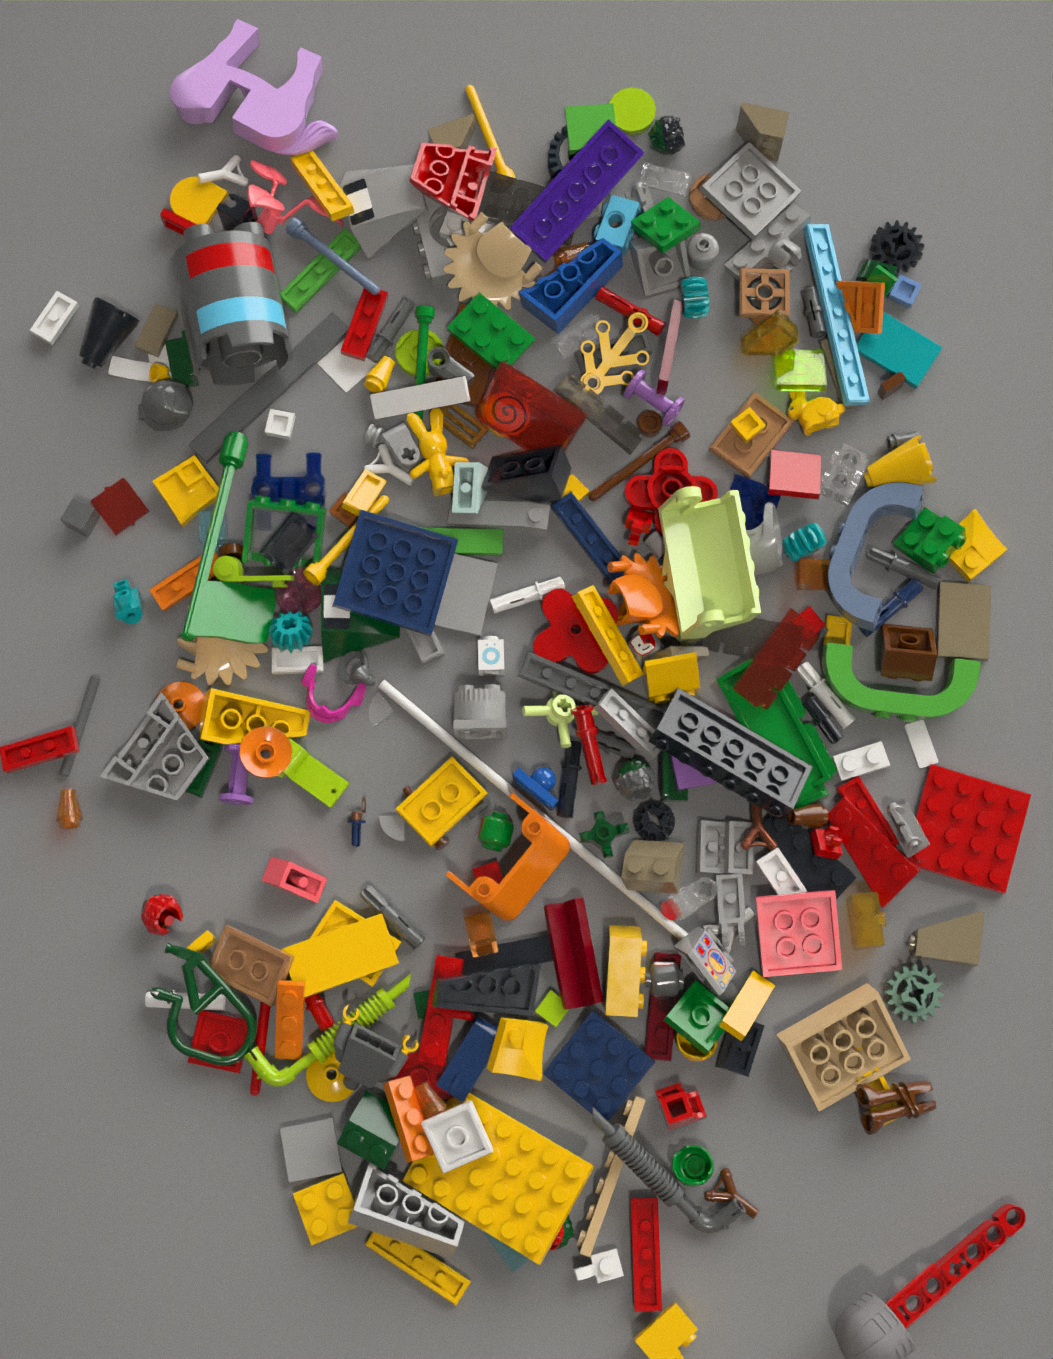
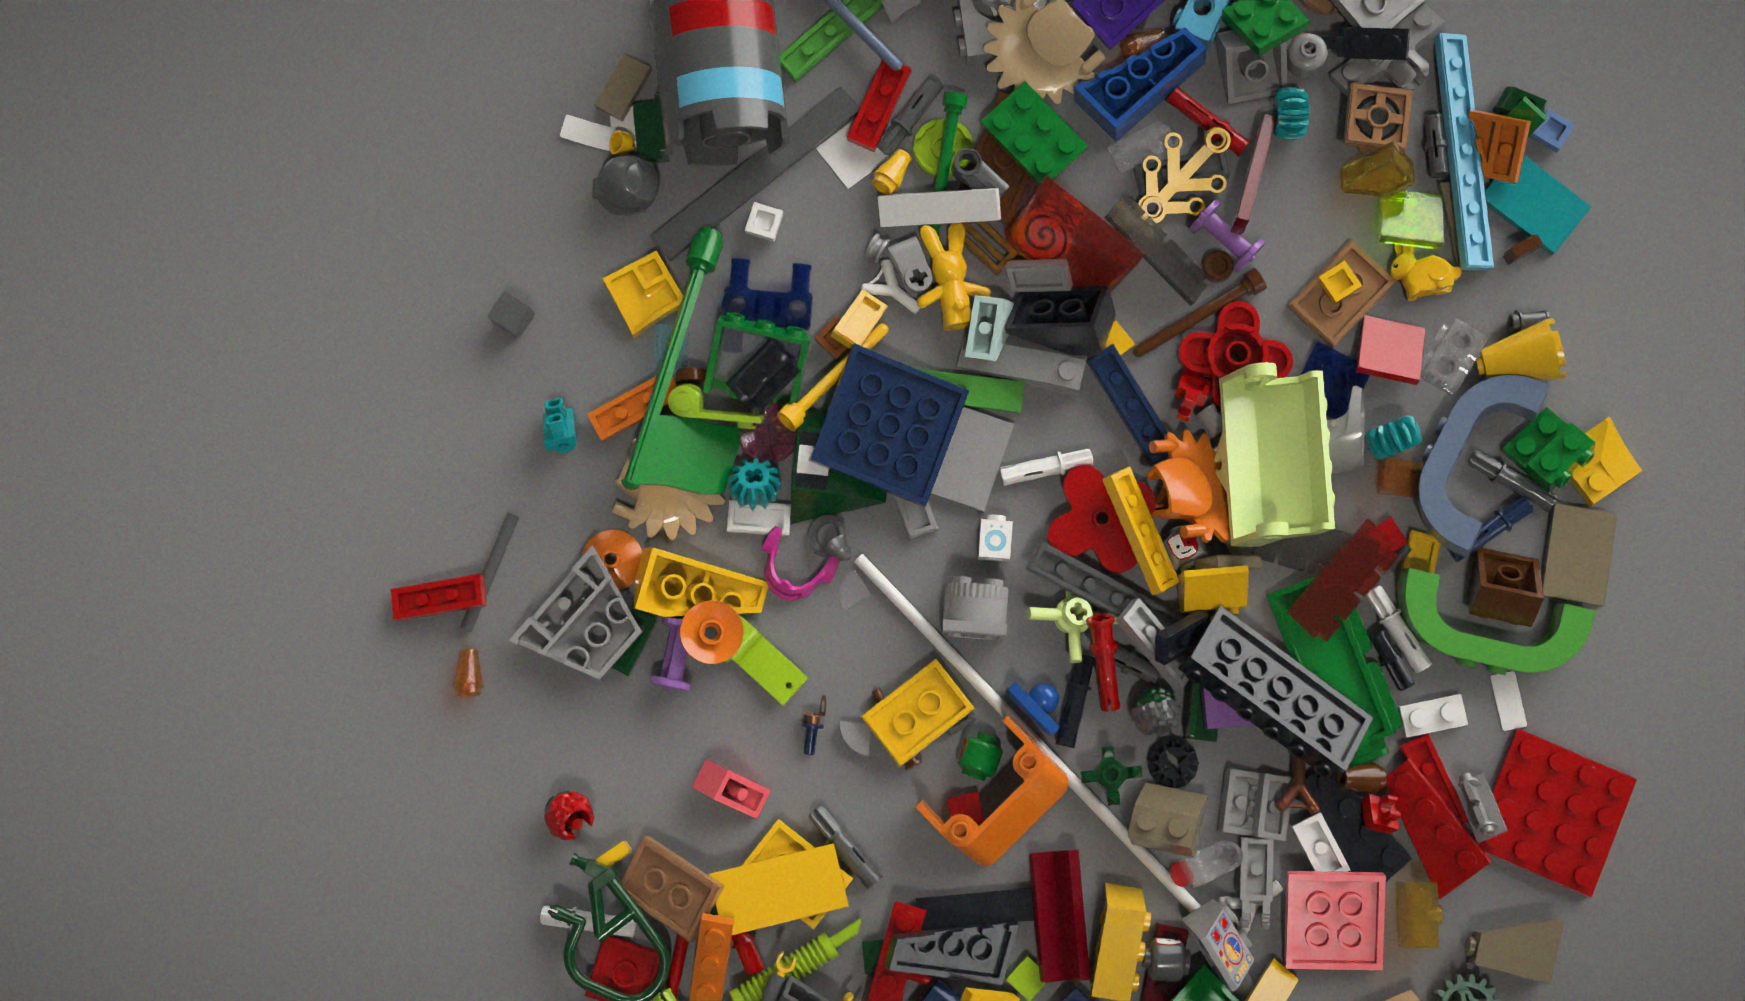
camera: 10 degrees right, 5 degrees up
(54, 318) = (500, 60): white plate -> none
(105, 332) = (560, 86): black cone -> none
(119, 506) = (560, 304): clear red piece -> none
(481, 934) = (950, 880): clear orange brick -> none
(506, 443) = (1039, 275): none -> light grey tile
(647, 716) = (1179, 637): none -> black plate
(752, 236) = (1370, 43): none -> black hinge
(886, 240) = (1562, 75): black gear -> none

